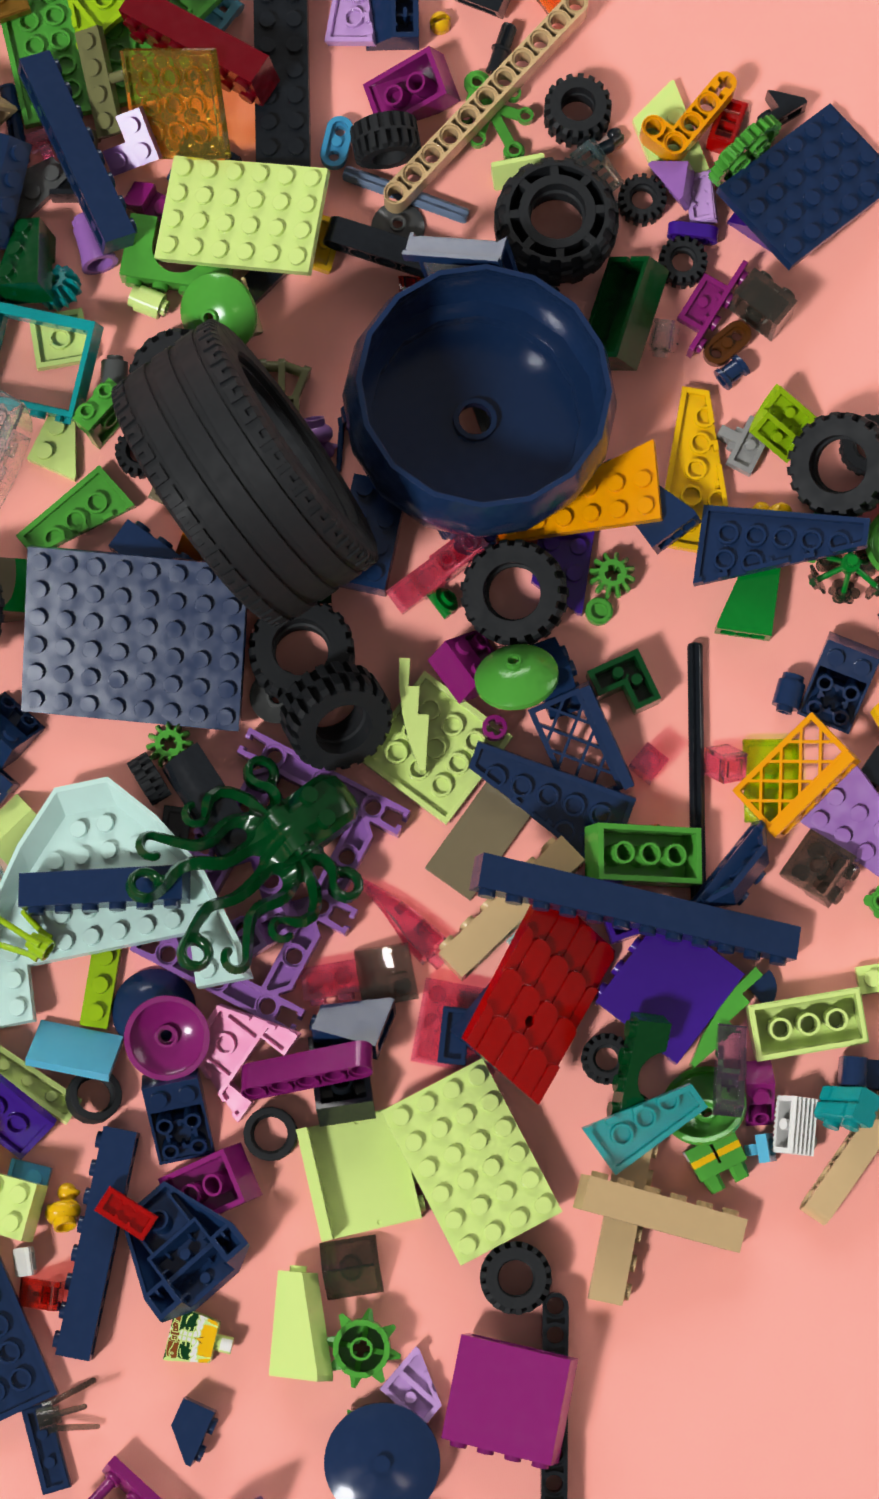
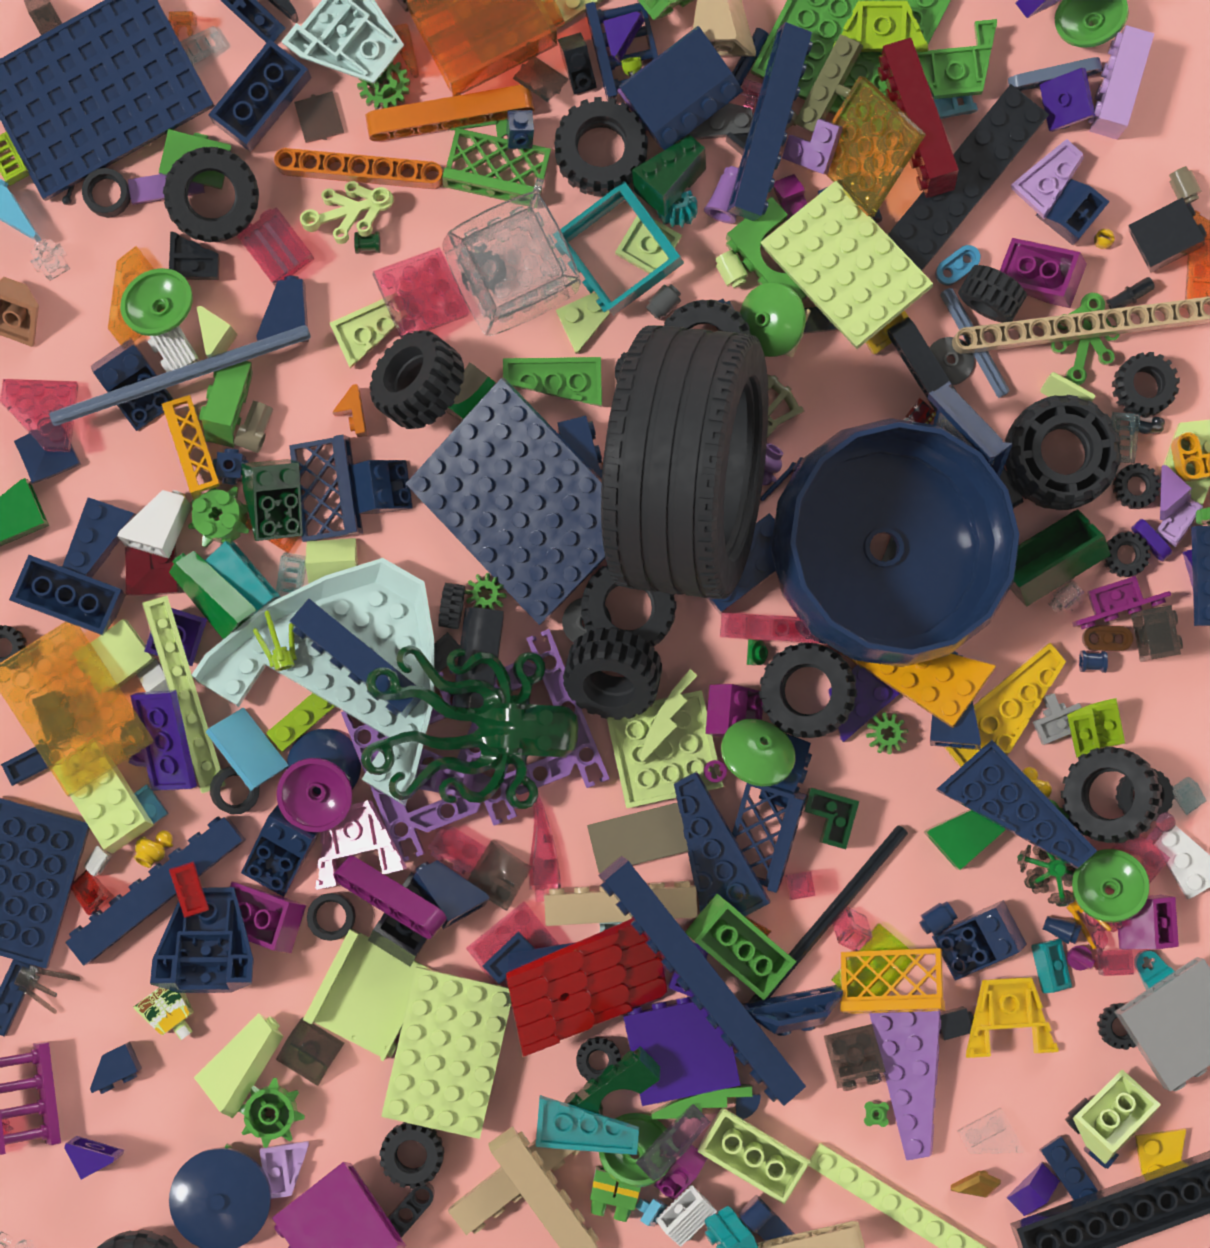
camera: 35 degrees right, 5 degrees up
(98, 415) = (627, 322): bright green plate -> none
(598, 611) = (856, 749): bright green tile -> none

